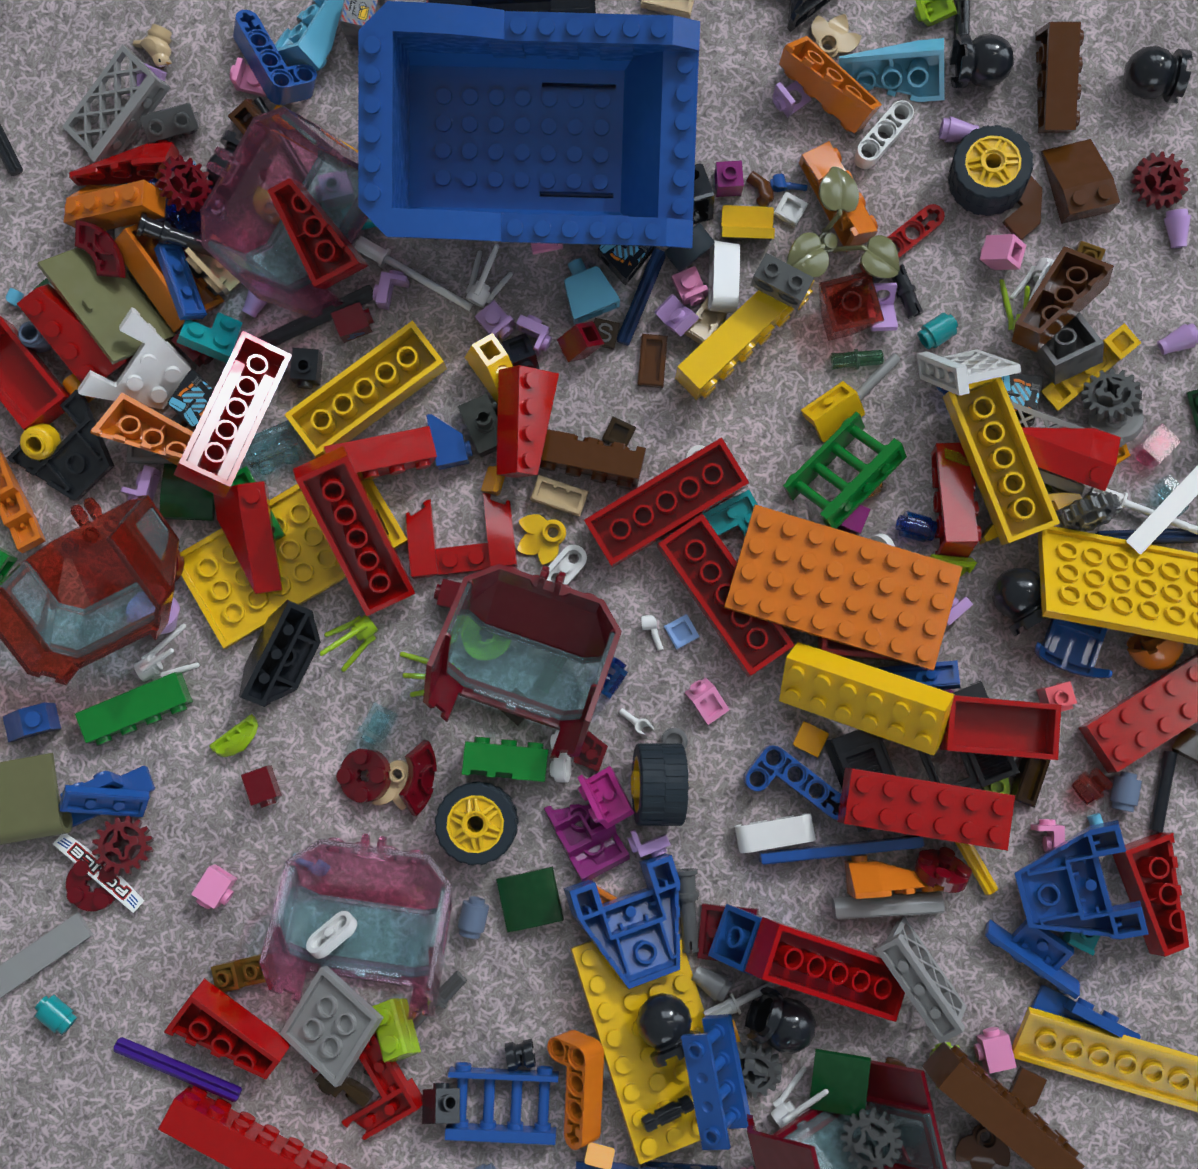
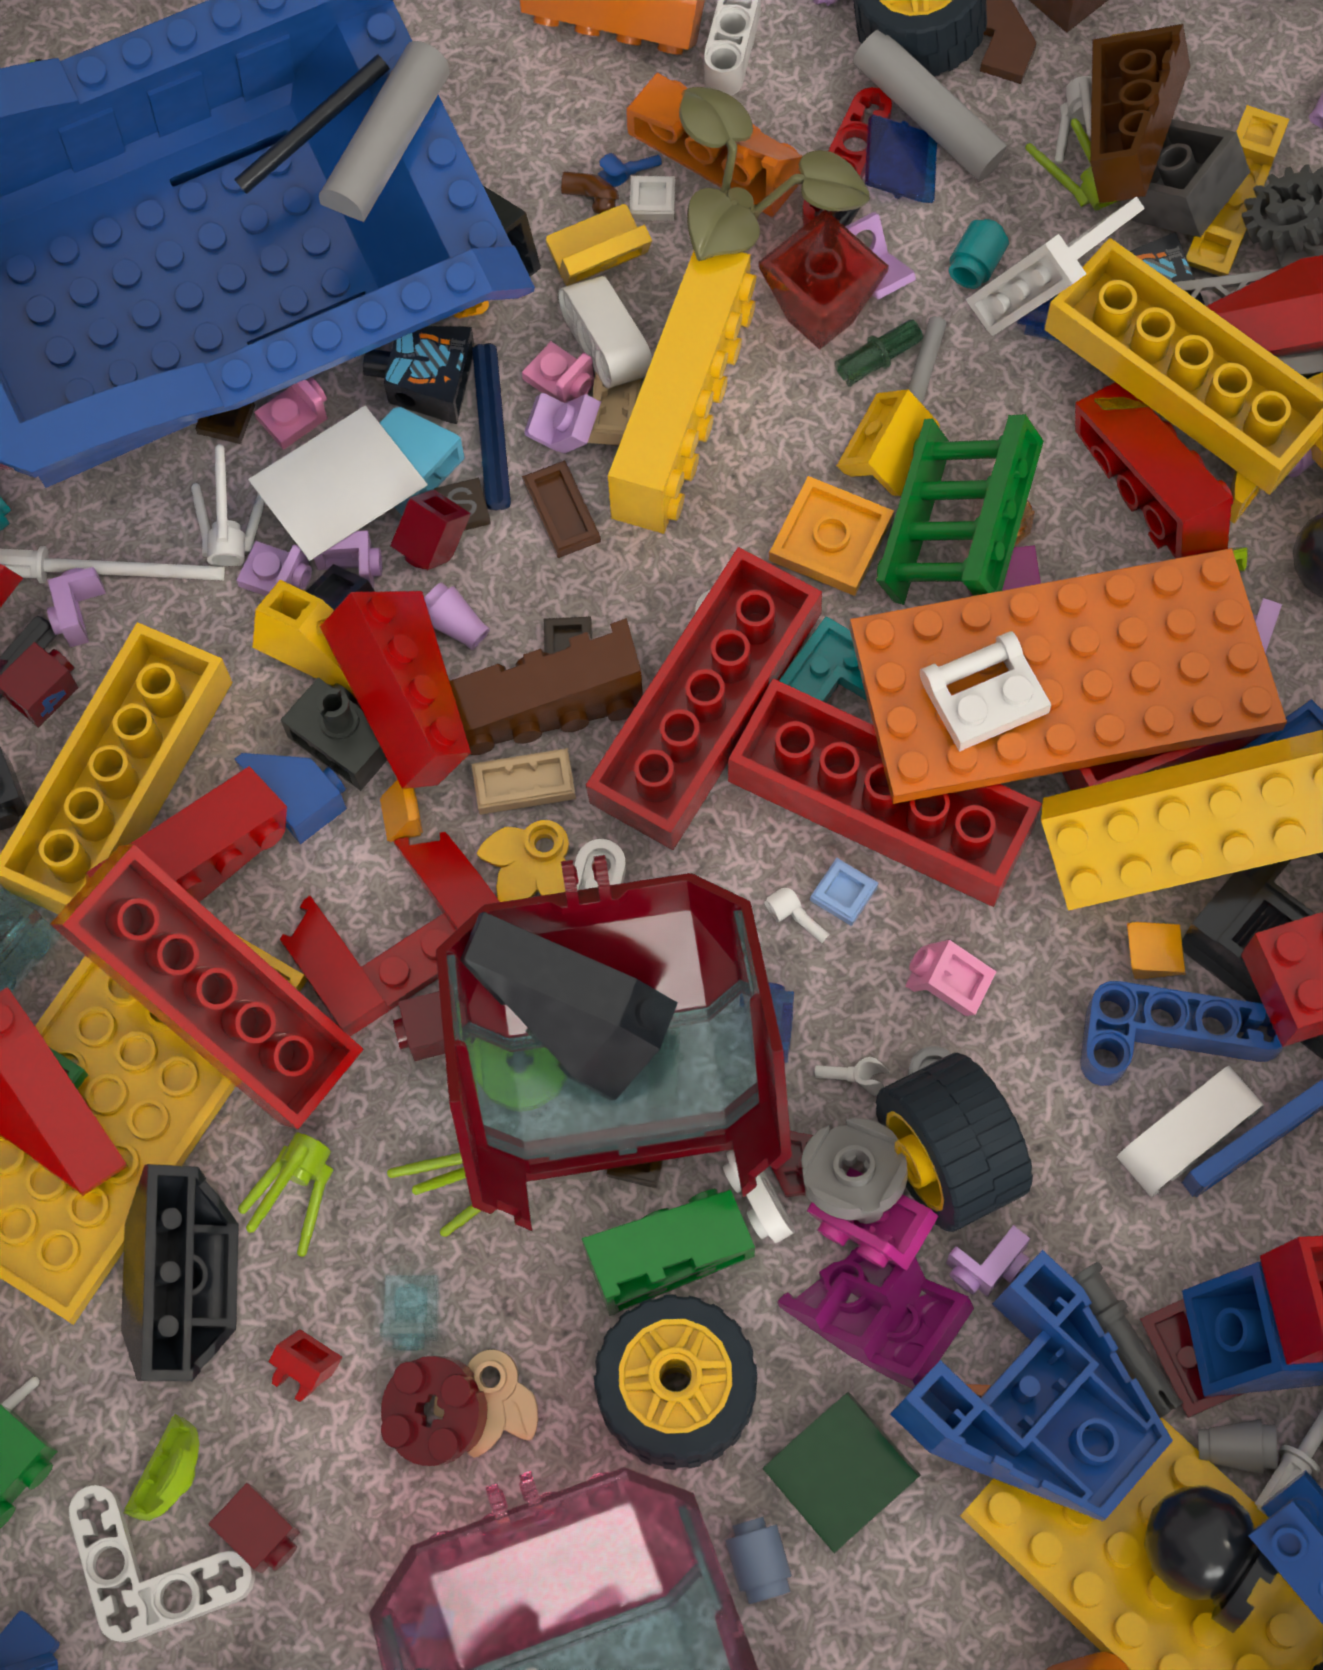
camera: 25 degrees left, 15 degrees down
(202, 788) = (147, 1594): none -> white beam
(319, 722) = (304, 1361): none -> red tile
(420, 779) = (537, 1372): dark red tile -> none
(519, 637) = (582, 1011): none -> black wedge
(547, 293) = (337, 482): none -> white sticker
(569, 392) = (454, 616): none -> lavender cone
(605, 787) = (858, 1197): none -> light grey plate
(622, 102) = (312, 124): none -> black bar
(655, 130) = (386, 131): none -> light grey brick
(684, 257) = (528, 319): black wheel -> none
(728, 178) = (536, 193): magenta brick -> none
(776, 446) = (831, 535): none -> light orange plate
(781, 281) = (701, 271): dark grey brick -> none
(785, 102) = (557, 51): lavender bracket -> none
(794, 588) = (991, 705): none -> white plate
(907, 293) = (900, 228): black pin -> none
(916, 526) = (1120, 542): clear blue brick -> none
(929, 255) = (900, 159): none -> clear blue piece
(960, 233) = (930, 104): none -> light grey brick
(1003, 252) = (1007, 99): bright pink brick -> none

